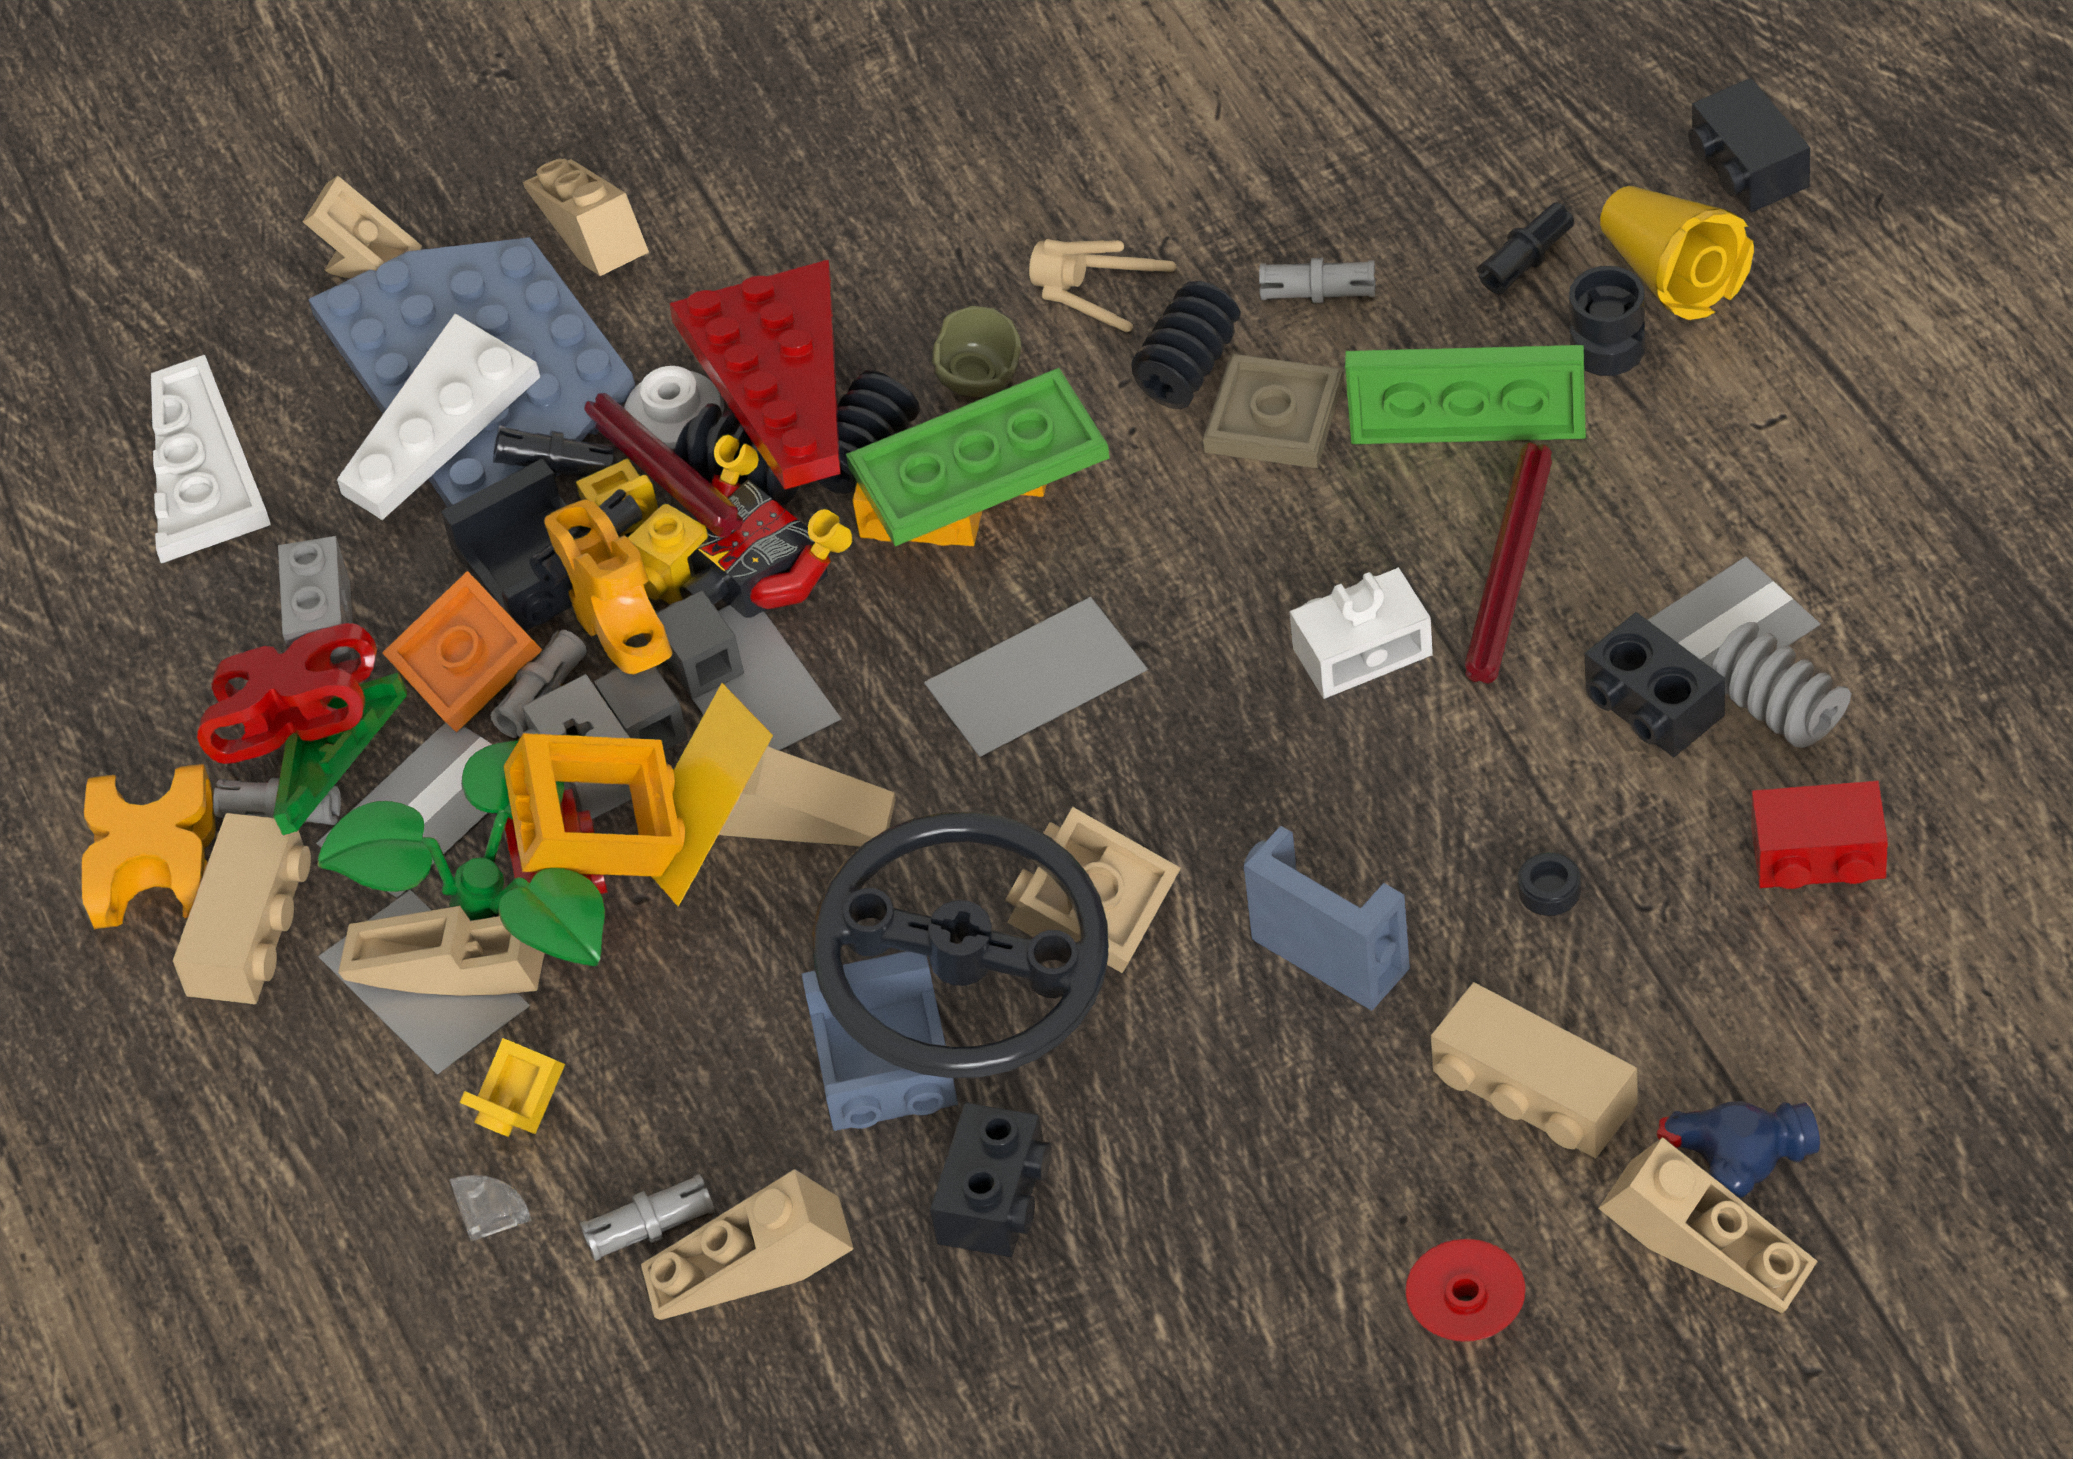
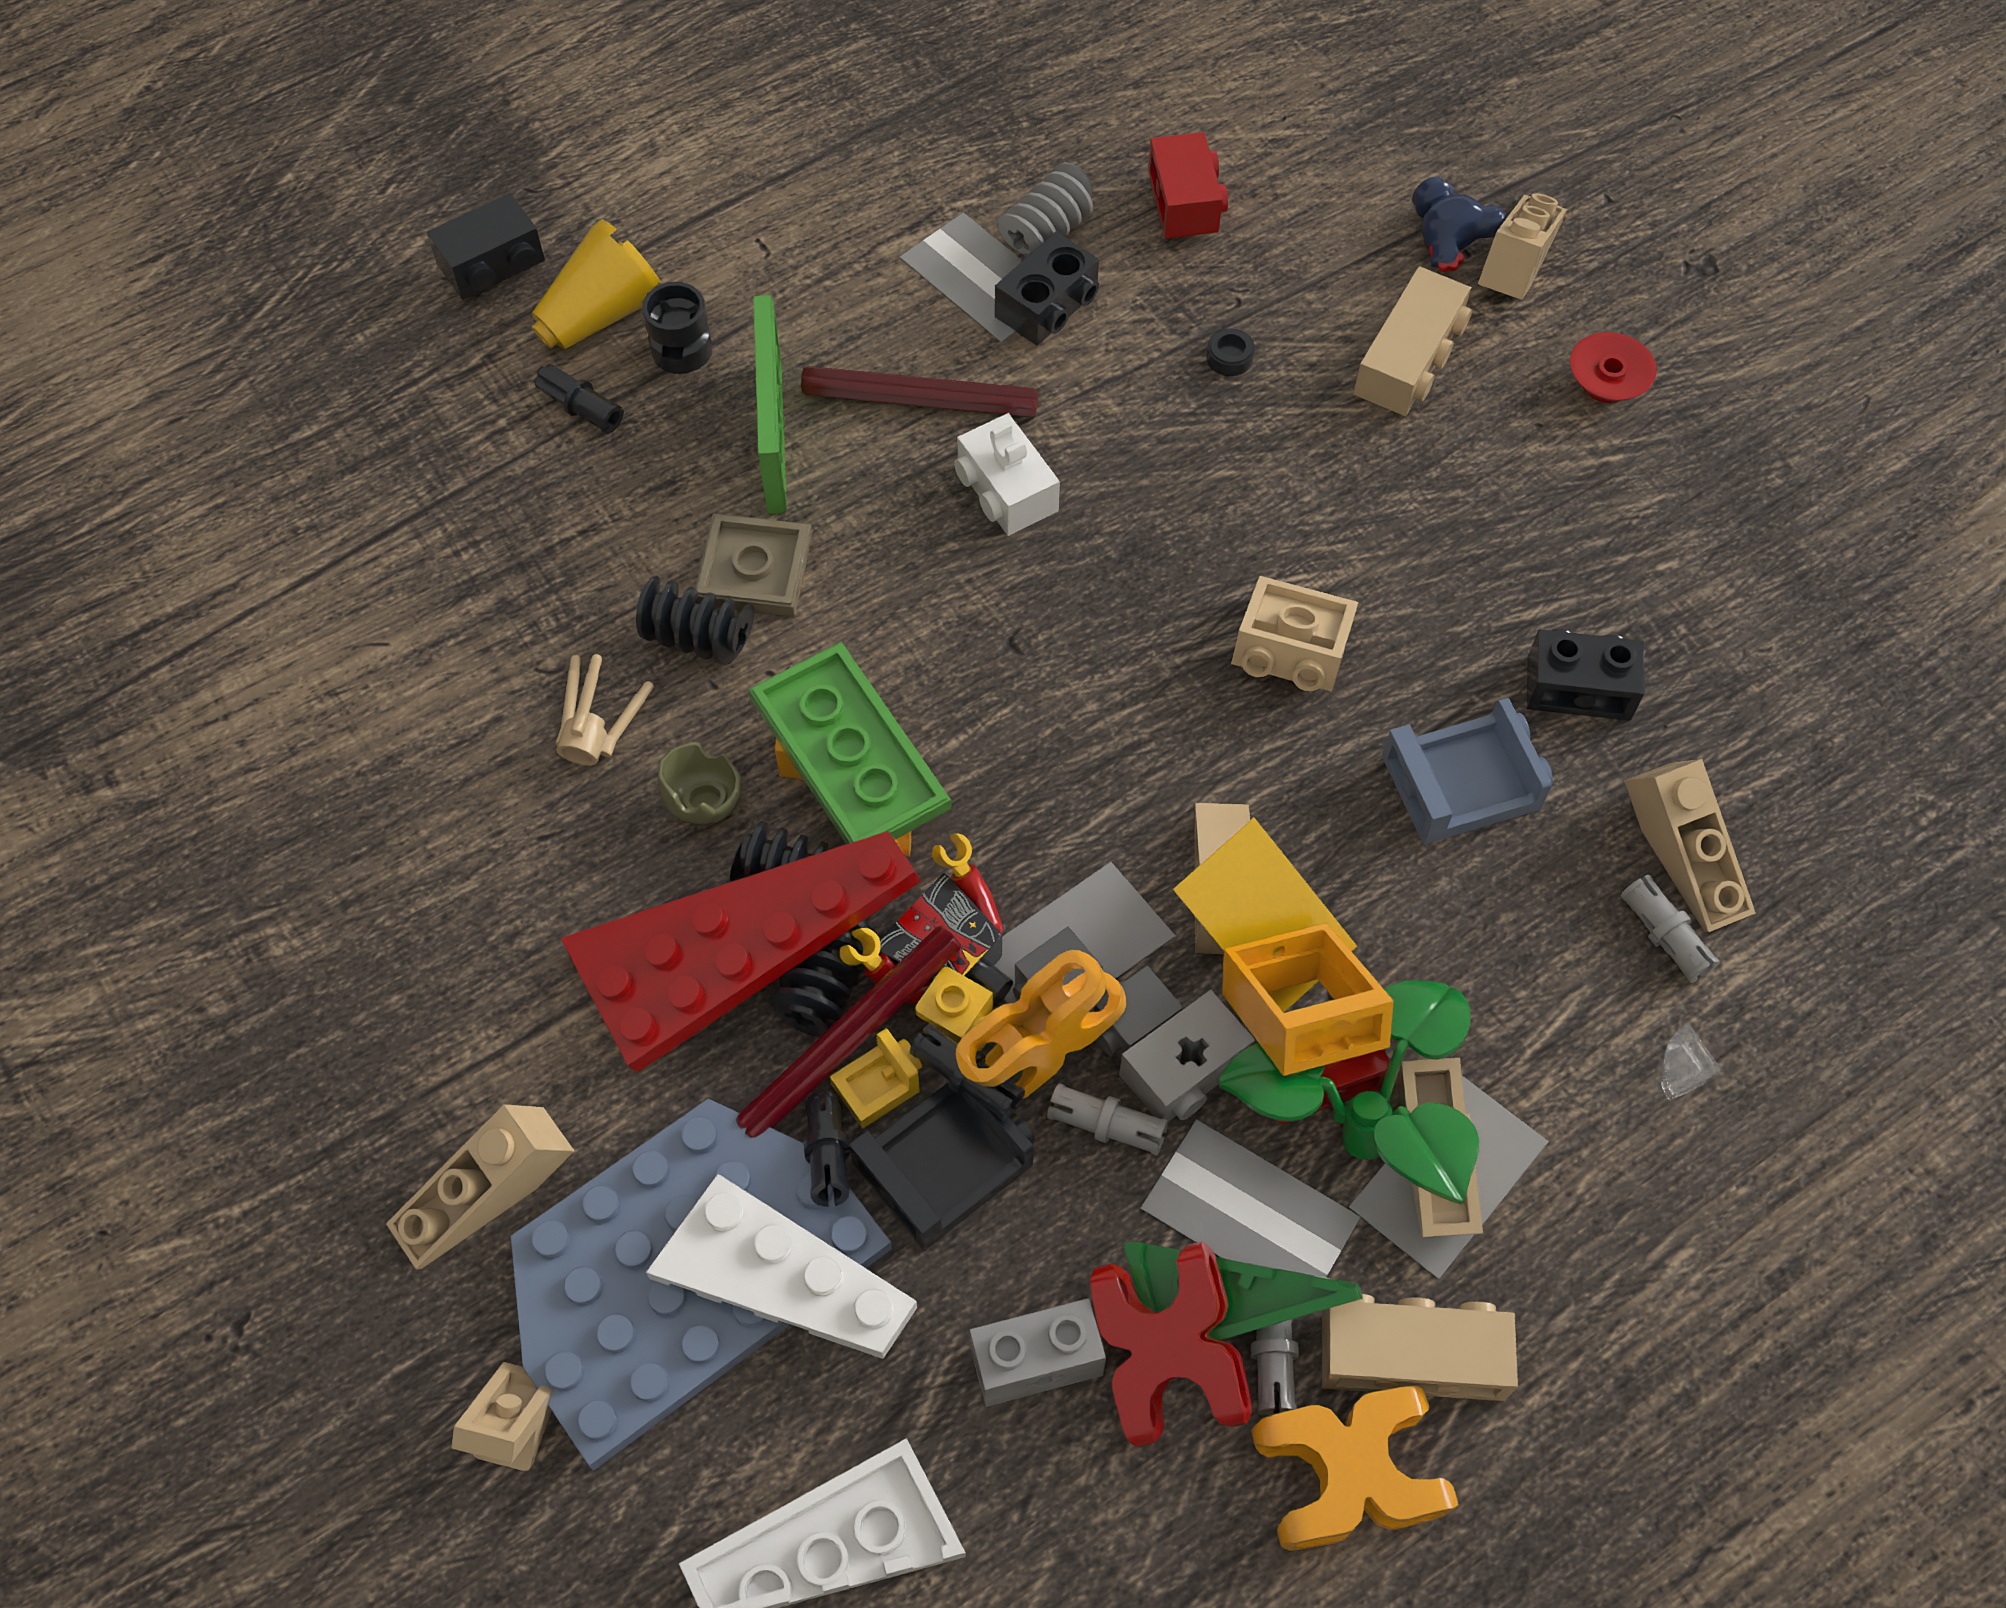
camera: 105 degrees left, 10 degrees up
(461, 651) = (1085, 1191): orange hinge -> none
(515, 1089) = (1577, 1054): yellow bracket -> none
(671, 399) = (737, 1085): white piece -> none
(965, 963) = (1400, 756): black piece -> none
(1035, 676) = (1052, 716): light grey sticker -> none
(1317, 280) = (607, 541): light grey pin -> none
(1322, 933) = (1300, 490): sand blue panel -> none

